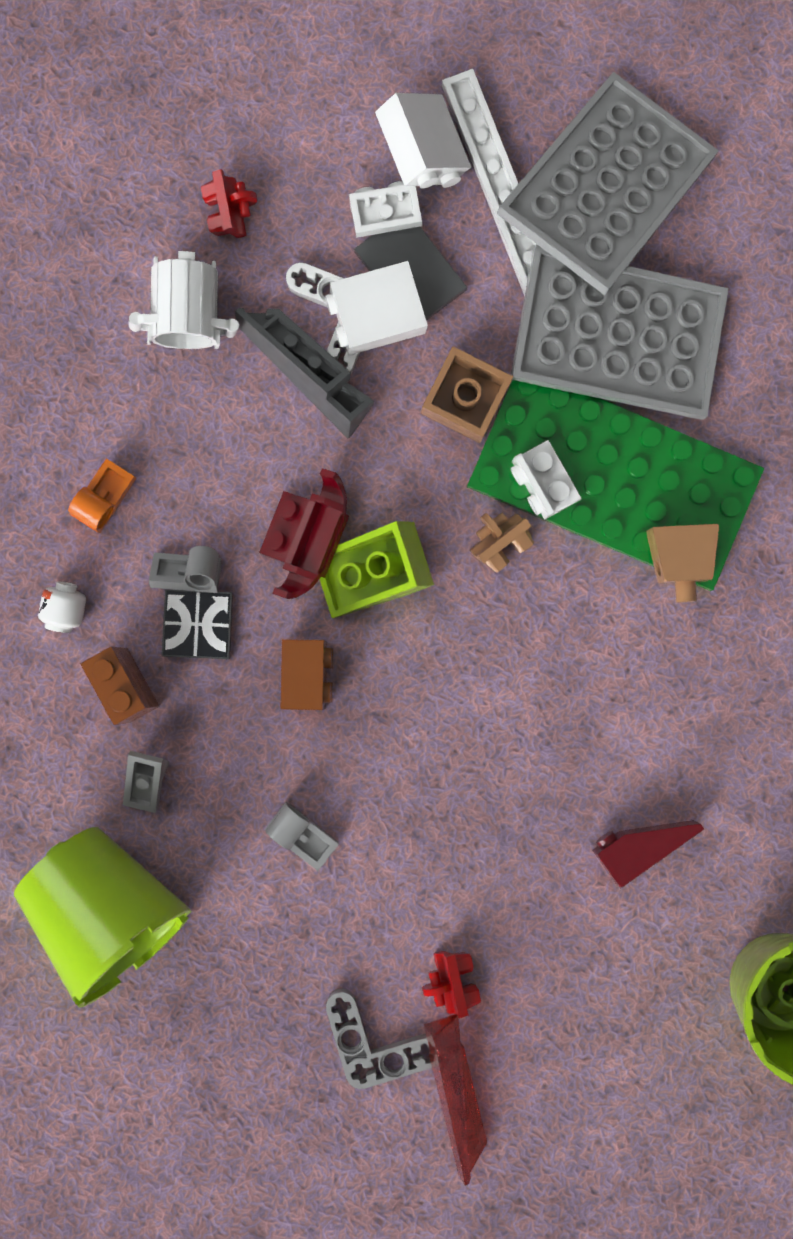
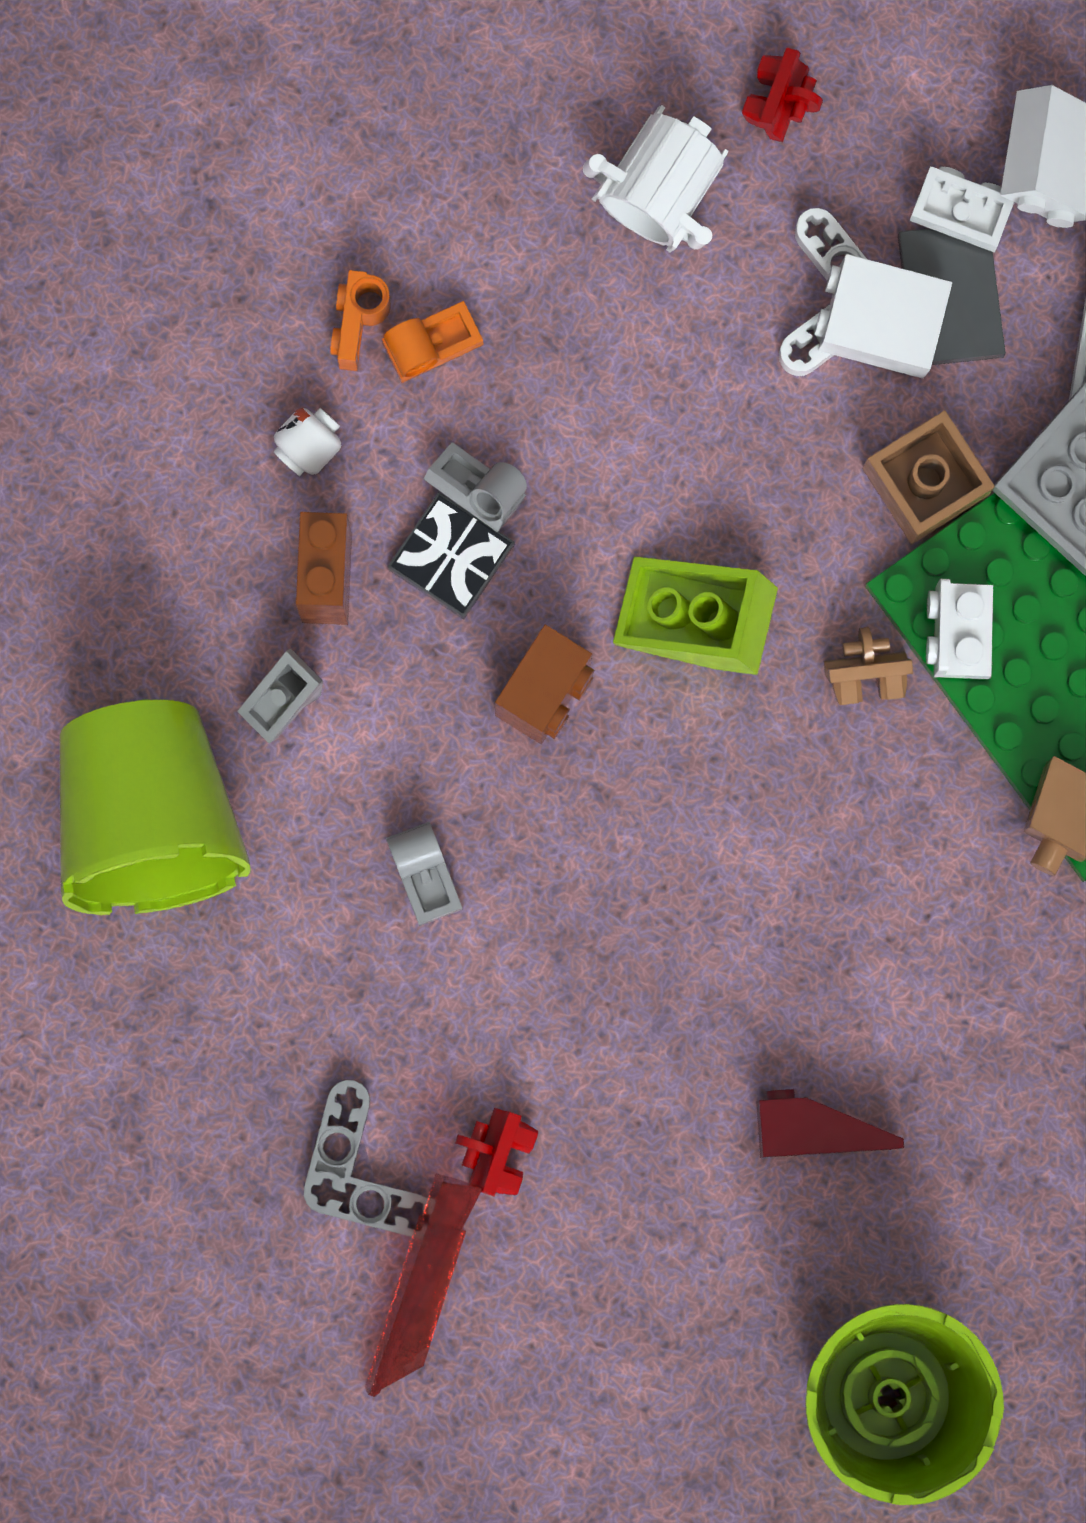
camera: 30 degrees right, 5 degrees down
(48, 526) = (347, 339): none -> orange plate
(307, 367) = (761, 336): dark grey wedge -> none
(307, 534) = (643, 527): dark red plate -> none

